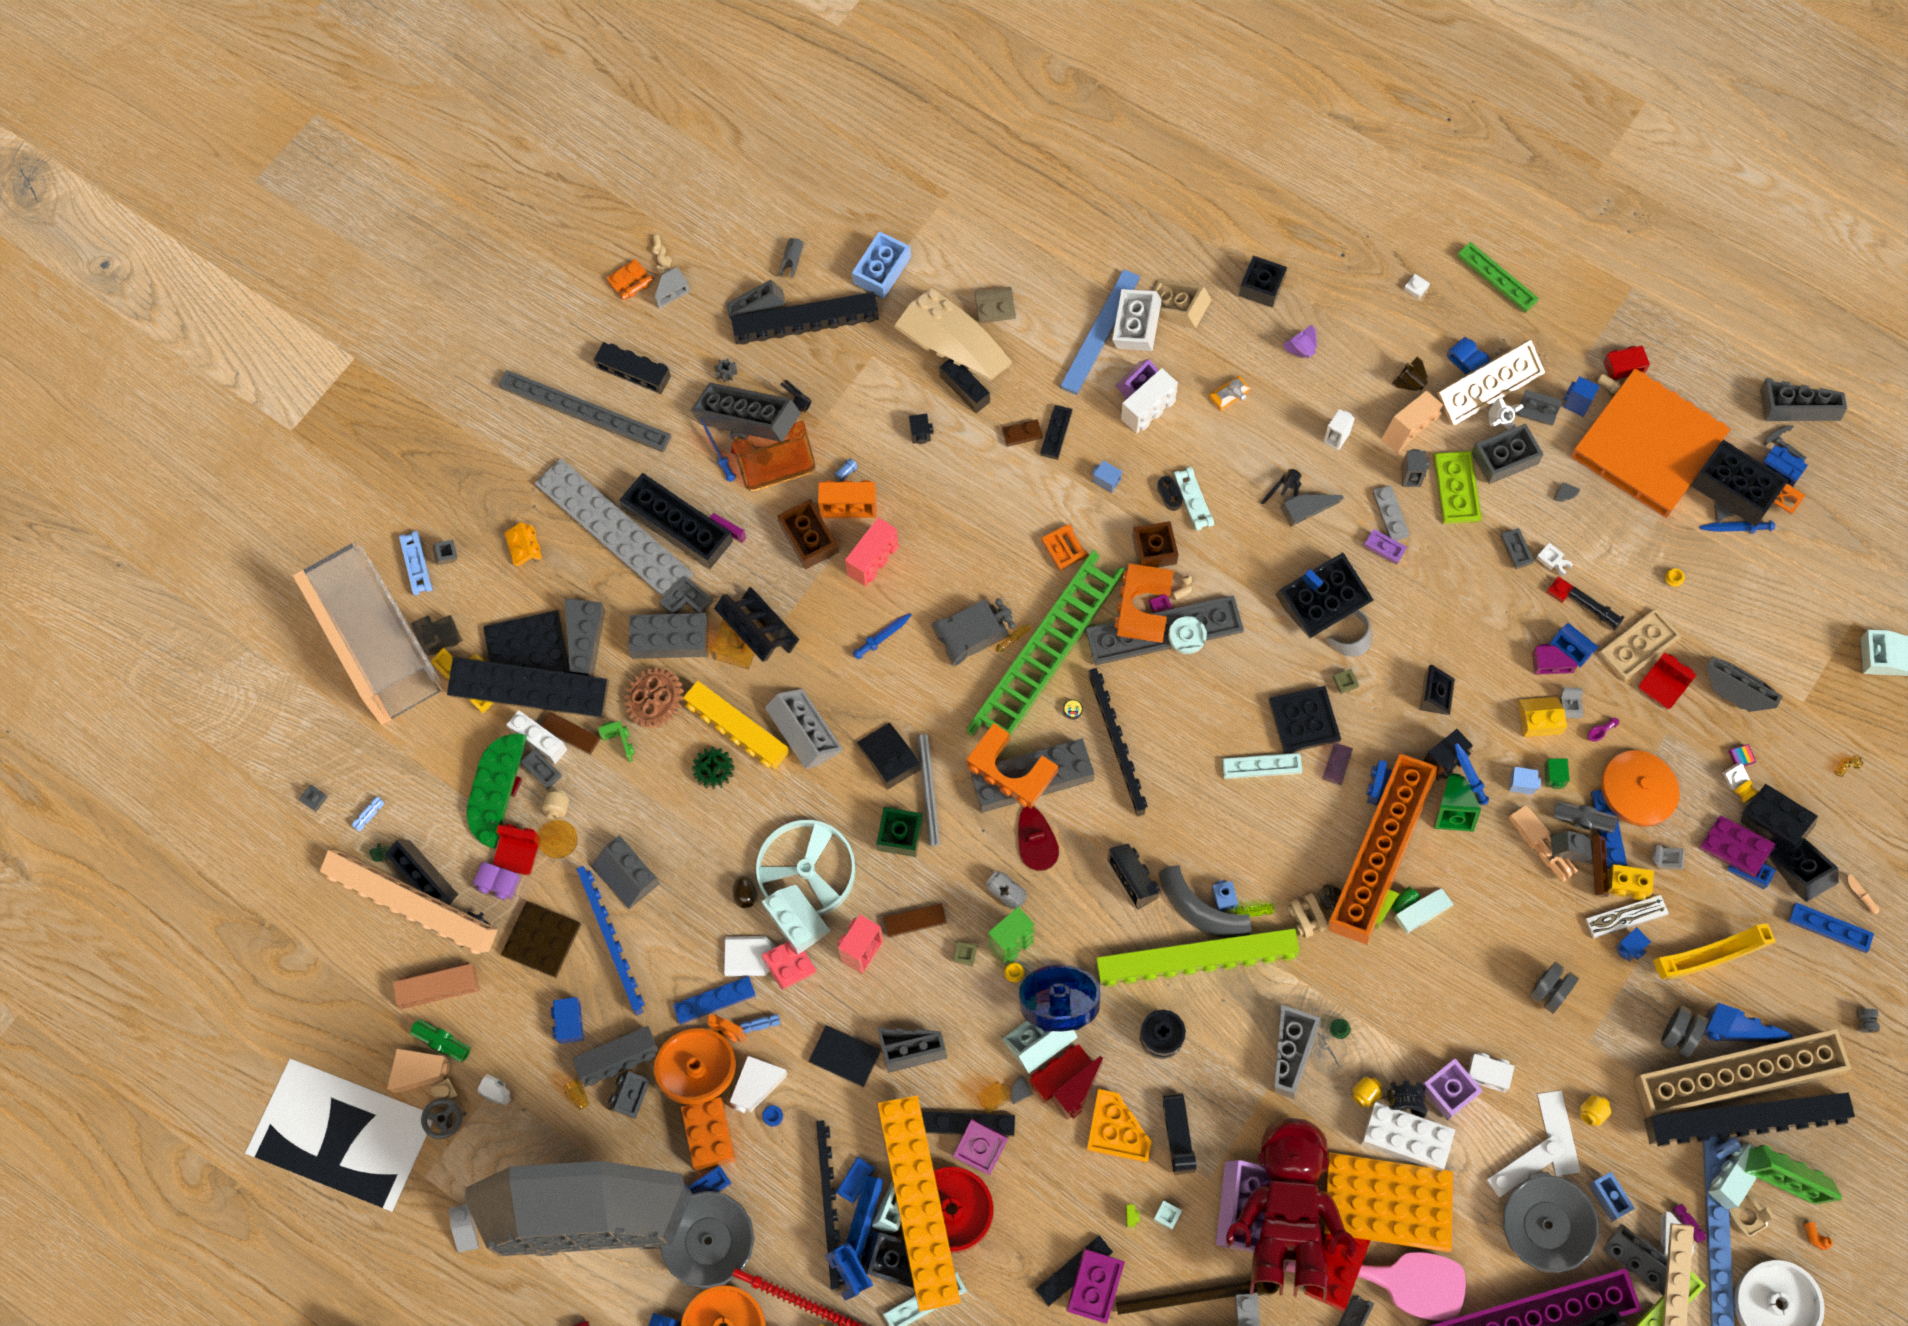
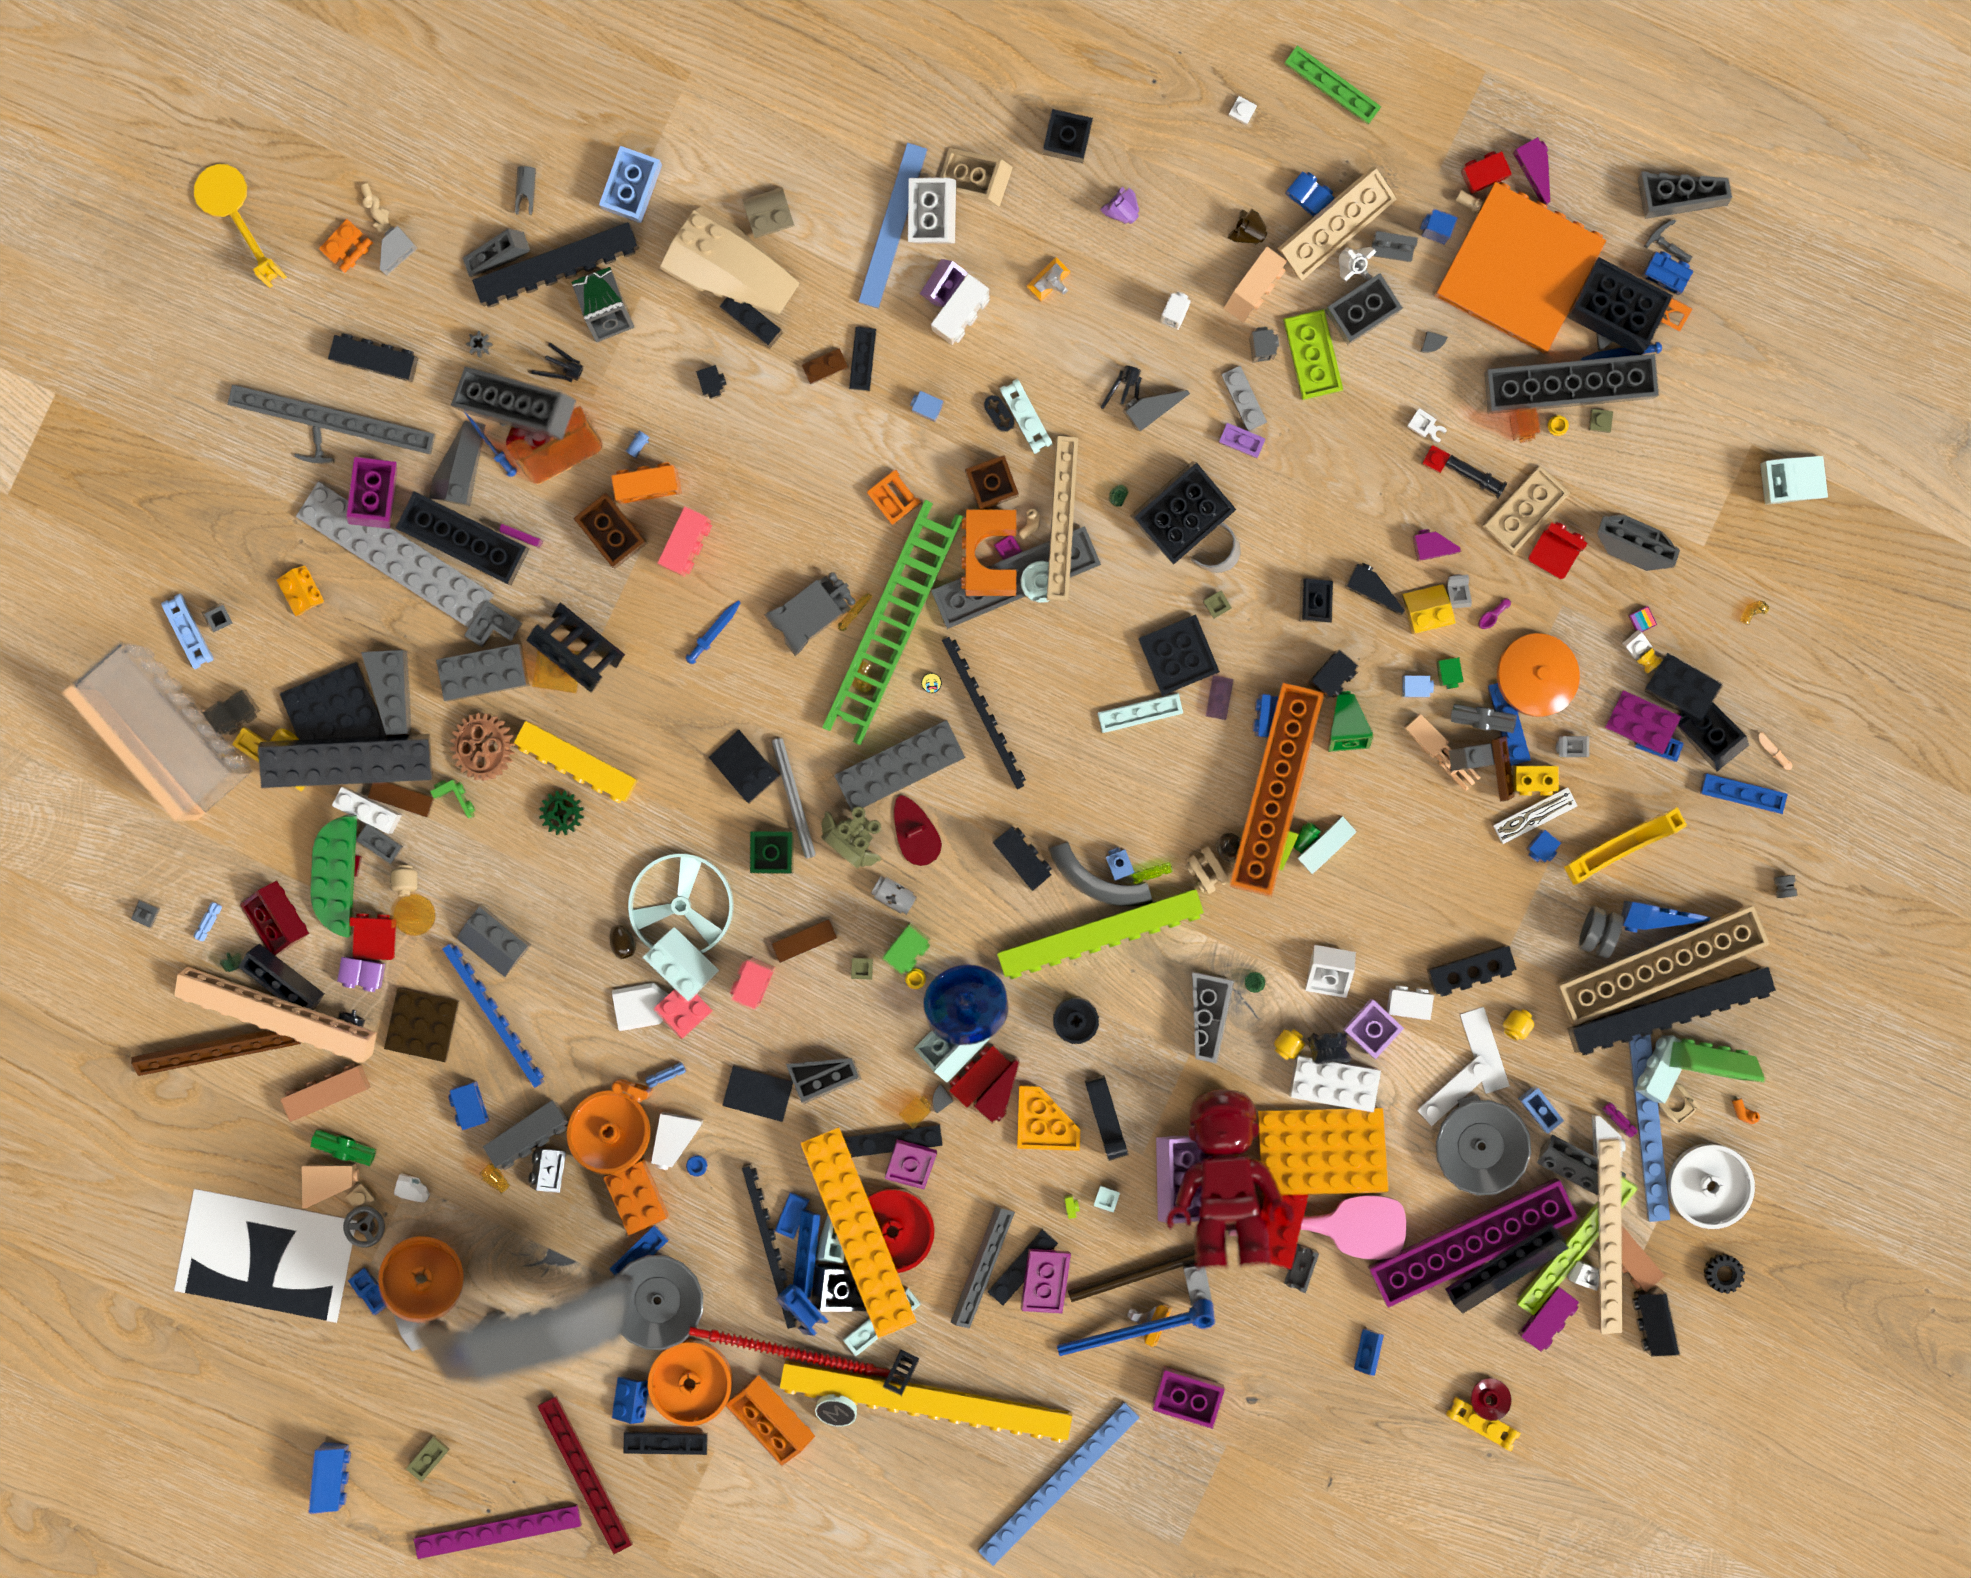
camera: 10 degrees left, 20 degrees up
(342, 930) = (210, 1051): none -> reddish brown plate
(429, 819) = (274, 918): none -> dark red slope
(431, 1185) = (368, 1289): none -> blue slope
(474, 1158) = (423, 1300): none -> orange piece
(537, 224) = (220, 193): none -> yellow piece
(567, 437) = (318, 459): none -> dark grey piece
(605, 470) = (372, 492): none -> magenta brick
(685, 468) = (458, 469): none -> dark grey wedge
(714, 1000) = (614, 1058): blue plate -> none
(803, 728) = (648, 752): light grey slope -> none
(839, 355) = (602, 304): none -> slope
(977, 828) = (852, 837): none -> olive piece
(1009, 701) = (864, 670): none -> clear yellow arm
(1024, 789) = (847, 768): orange arch -> none
(1034, 1262) = (982, 1267): none -> dark grey plate
(1214, 585) = (1062, 519): none -> tan plate
(1267, 575) = (1118, 495): none -> clear green piece
(1312, 579) = (1167, 503): blue tile -> none
(1415, 1029) = (1330, 971): none -> white slope
(1475, 783) = (1365, 701): blue sword -> none
(1490, 687) = (1370, 586): none -> black slope
(1517, 548) = (1385, 419): dark grey plate -> none
(1553, 987) = (1466, 908): dark grey wheel -> none
(1574, 644) = (1456, 525): blue brick -> none
(1583, 1041) = (1439, 974): none -> black brick
(1645, 568) = (1524, 425): none -> clear orange brick
(1669, 360) = (1535, 165): none -> magenta slope
(1690, 542) = (1571, 384): none -> dark grey brick
(1714, 580) = (1601, 421): none -> olive plate
(1728, 1147) = (1657, 1040): medium blue pin -> none

